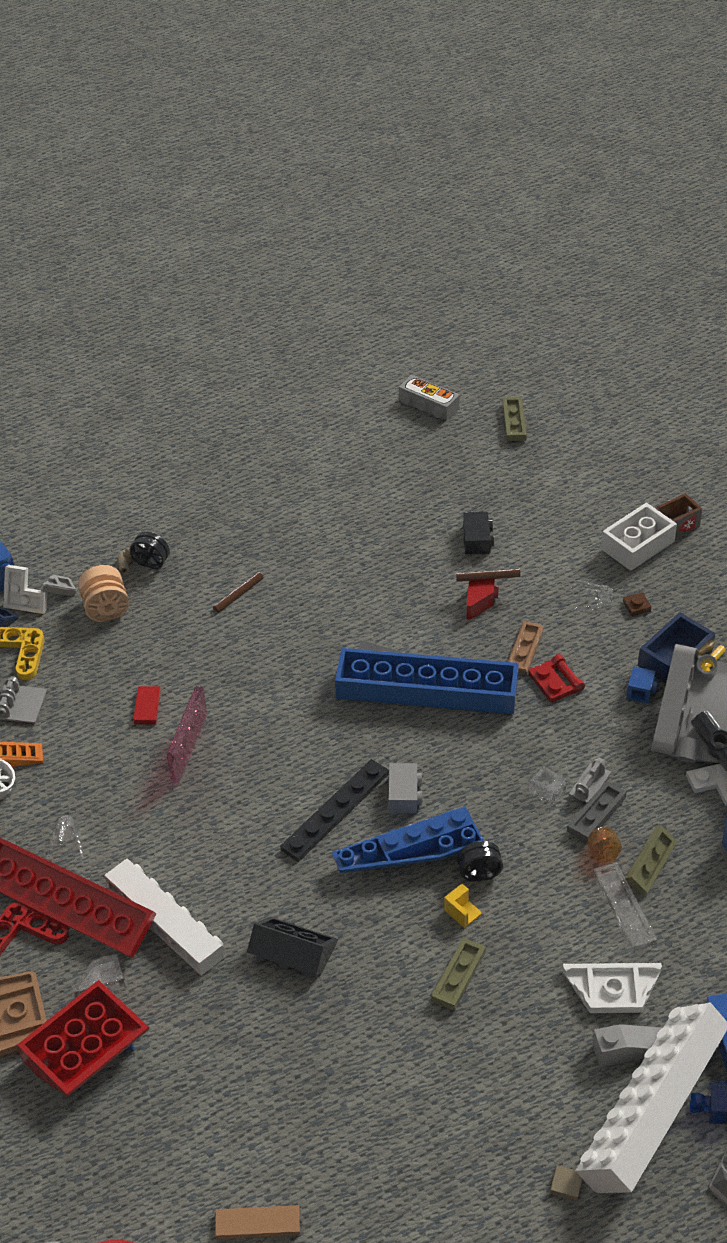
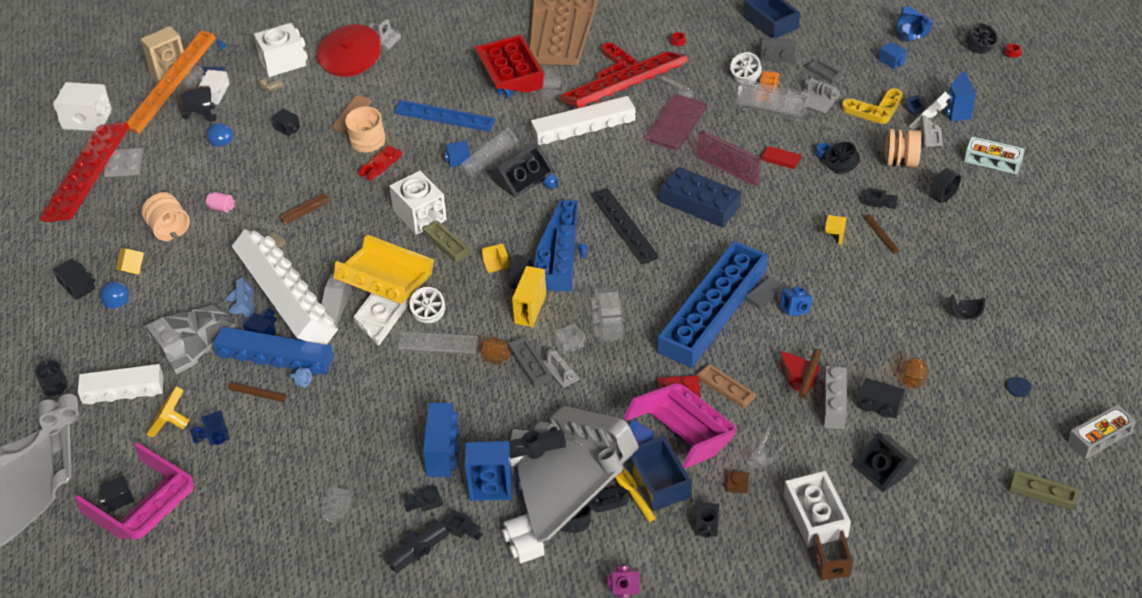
camera: 115 degrees right, 0 degrees up
(46, 734) = (773, 99): none -> clear slope
(74, 532) = (994, 155): none -> light aqua brick
(122, 666) = (822, 149): none -> blue plate
(123, 820) = (677, 122): none -> clear pink tile
(133, 644) = (845, 157): none -> black wheel
(186, 604) = (879, 198): none -> black plate
(211, 1096) = (445, 115): none -> blue tile
(255, 618) = (836, 225): none -> yellow panel
(259, 748) = (700, 197): none -> dark blue brick
(266, 995) = (488, 153): none -> clear plate
(290, 908) = (551, 181): none -> blue hinge
(293, 1031) = (457, 153): none -> blue brick
(304, 1148) = (365, 129): none -> light nougat wheel
(321, 502) = (973, 308): none -> black helmet
(347, 1127) = (380, 162): none -> red hinge
(387, 620) = (795, 301): none -> blue brick
(400, 457) = (1019, 387): none -> dark blue piece
(403, 788) = (617, 260): light grey brick -> none
(421, 1020) = (417, 201): none -> white brick
(430, 518) = (914, 373): none -> clear orange head
(485, 1177) = (304, 209): none -> reddish brown axle
(499, 557) = (835, 397): none -> light grey brick
(502, 755) = (607, 315): none -> clear brick
(517, 833) = (529, 296): none -> yellow brick
(550, 511) = (885, 462): none -> black slope
(562, 1000) = (385, 270): none -> yellow panel
(579, 938) = (427, 305): none -> white wheel
(598, 639) = (688, 417): none -> dark pink windscreen
(651, 860) = (465, 372): olive plate -> none
(680, 1164) = (244, 296): none -> medium blue tile
(699, 605) = (710, 513): none -> black brick

